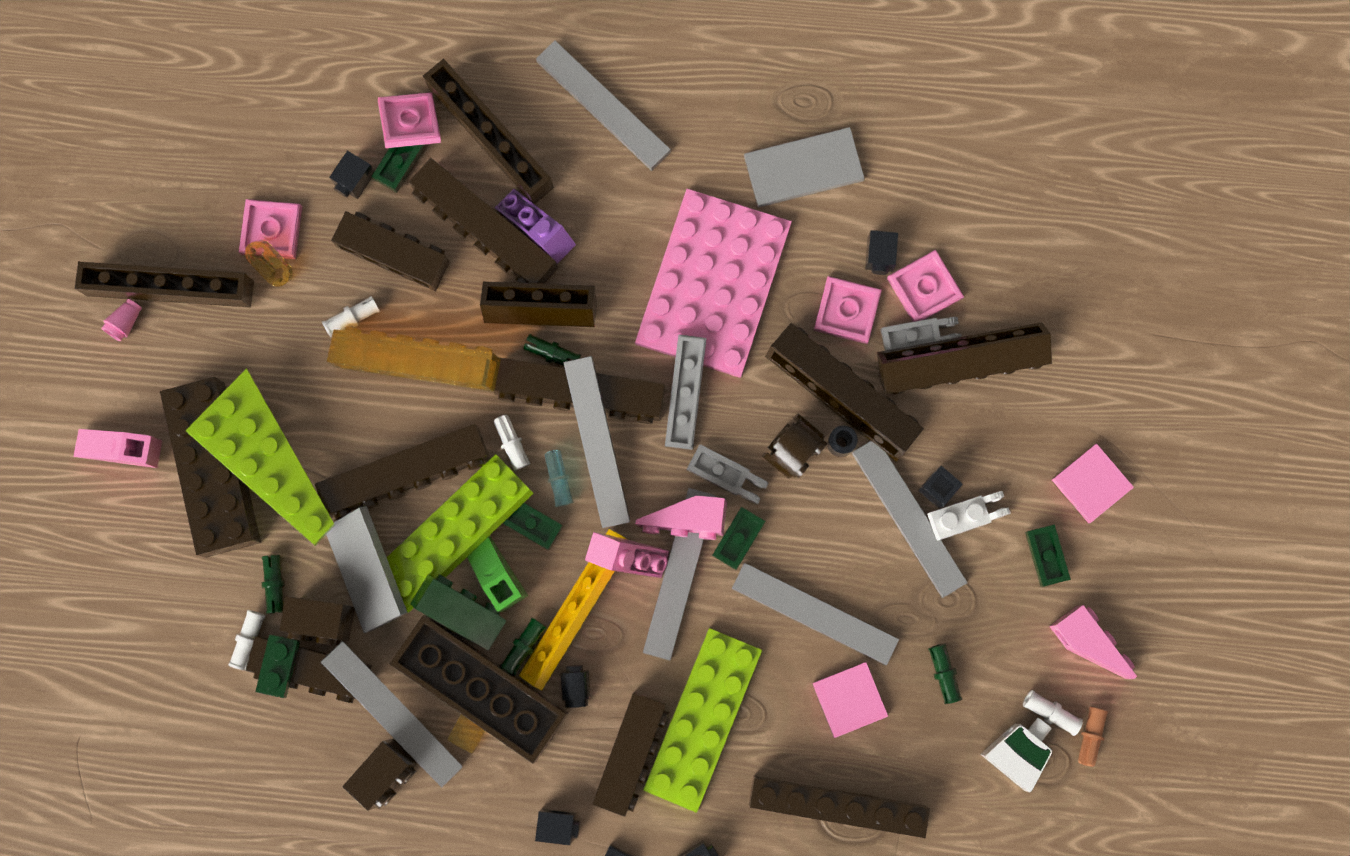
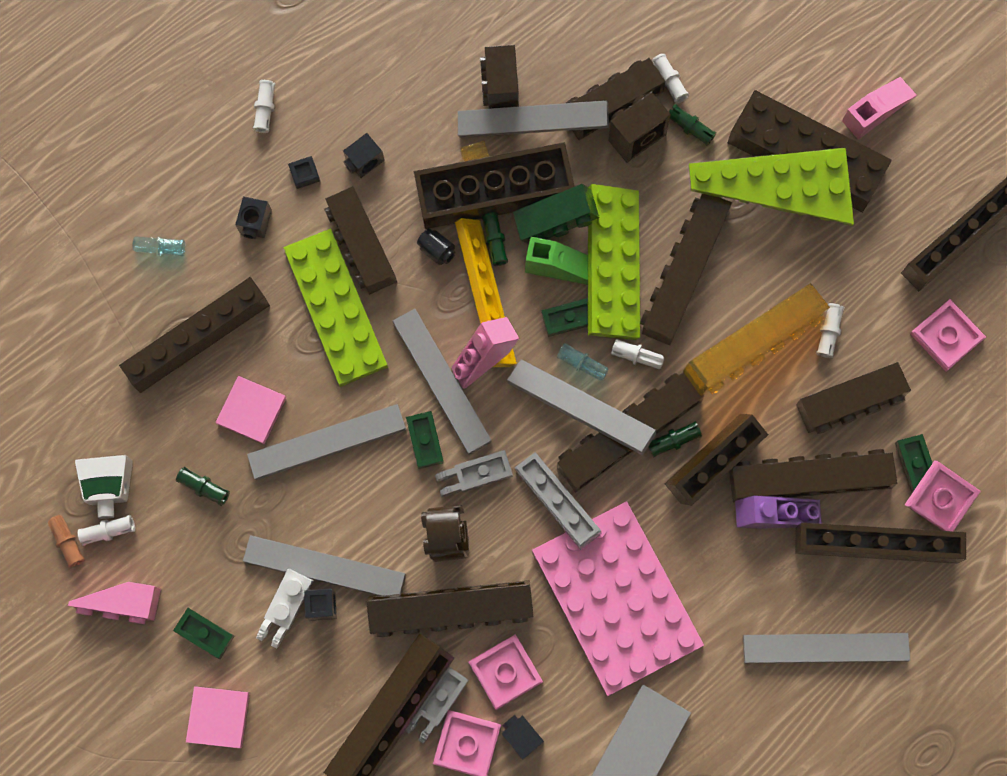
camera: 135 degrees right, 5 degrees down
(122, 320) = (970, 183): bright pink cone -> none
(273, 259) = (921, 310): clear yellow beam -> none
(277, 666) = (631, 75): dark green plate -> none
(351, 175) = (936, 421): black brick -> none
(365, 570) = (642, 185): light grey tile -> none
(693, 515) = (465, 423): bright pink slope -> none
(845, 433) = (414, 563): black brick -> none

